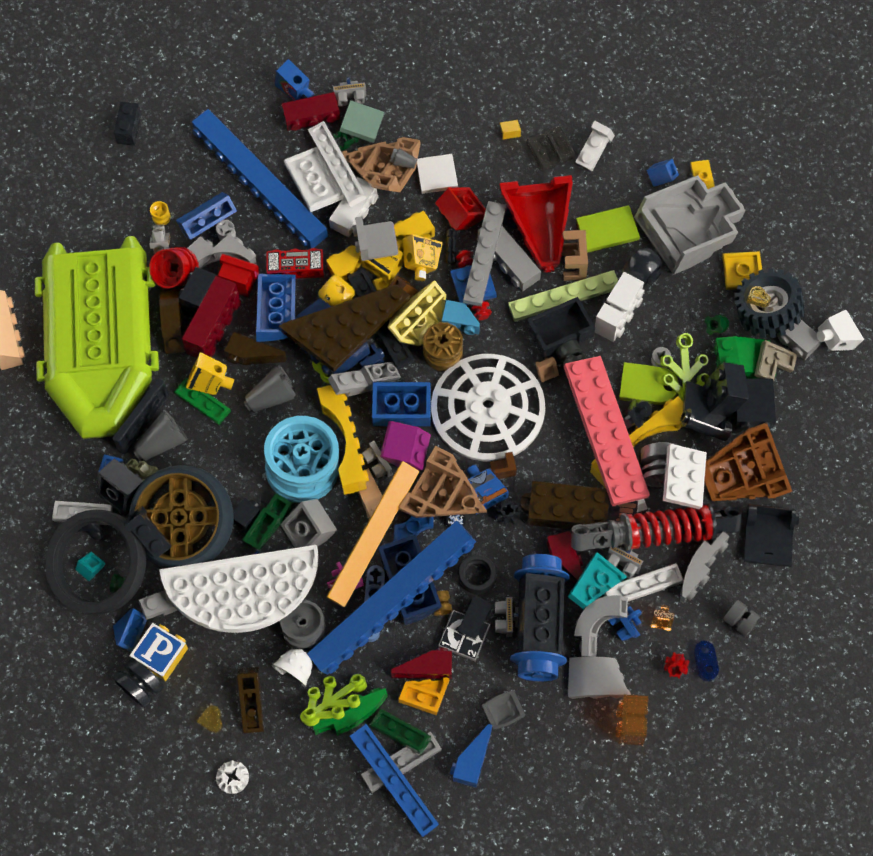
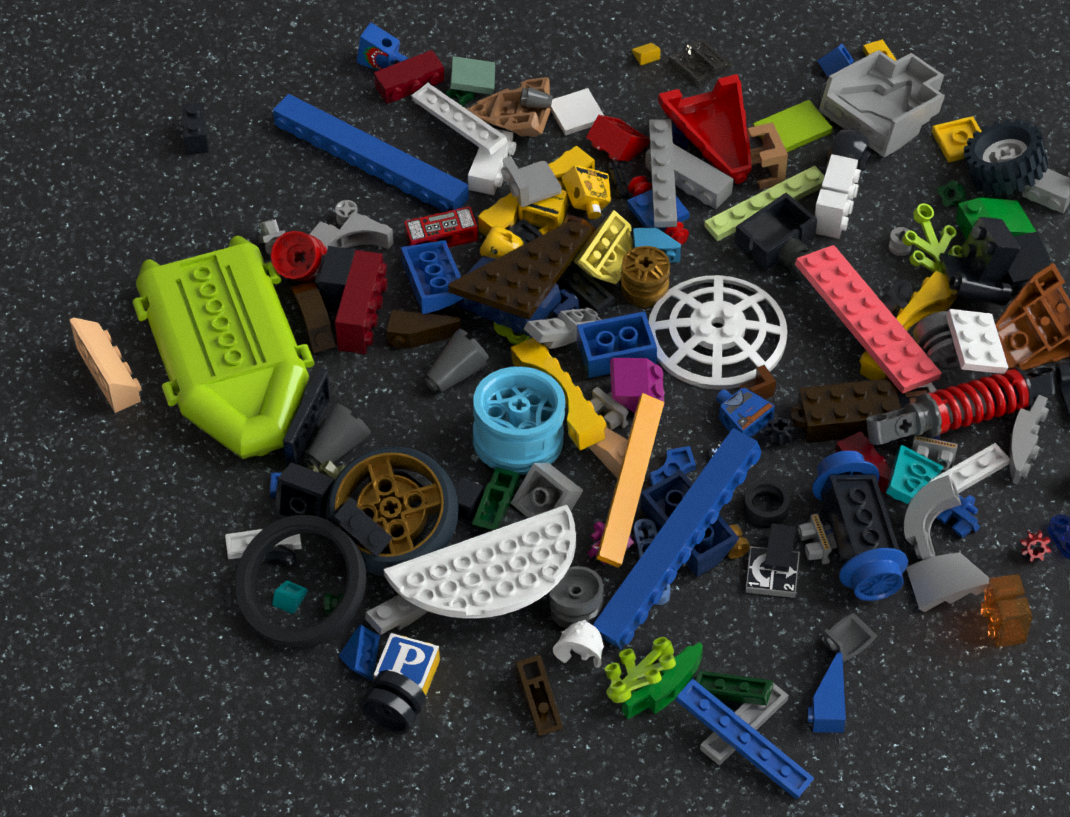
camera: 15 degrees left, 15 degrees down
(160, 213) = (261, 209): yellow wheel -> none
(203, 403) = (373, 394): green tile -> none
(206, 215) = (319, 200): blue brick -> none
(208, 375) = (375, 360): yellow torso -> none
(211, 719) = (494, 729): clear yellow tile -> none
(234, 786) = (548, 794): white gear -> none
(239, 272) = (381, 242): red plate -> none
(313, 179) = (435, 141): white tile -> none
(350, 90) = (450, 47): light grey hips -> none
(424, 694) = (746, 643): light orange wing -> none
(431, 665) = (744, 610): dark red slope -> none
(442, 490) = (696, 417): medium nougat wedge -> none
(547, 369) = (773, 277): medium nougat tile -> none
(595, 145) = (750, 46): white bracket -> none
(645, 383) = (888, 267): lime tile -> none
(662, 618) = (1001, 502): clear orange tile -> none
(758, 297) = (992, 149): clear yellow tile -> none
(771, 357) = (1029, 214): dark tan tile -> none

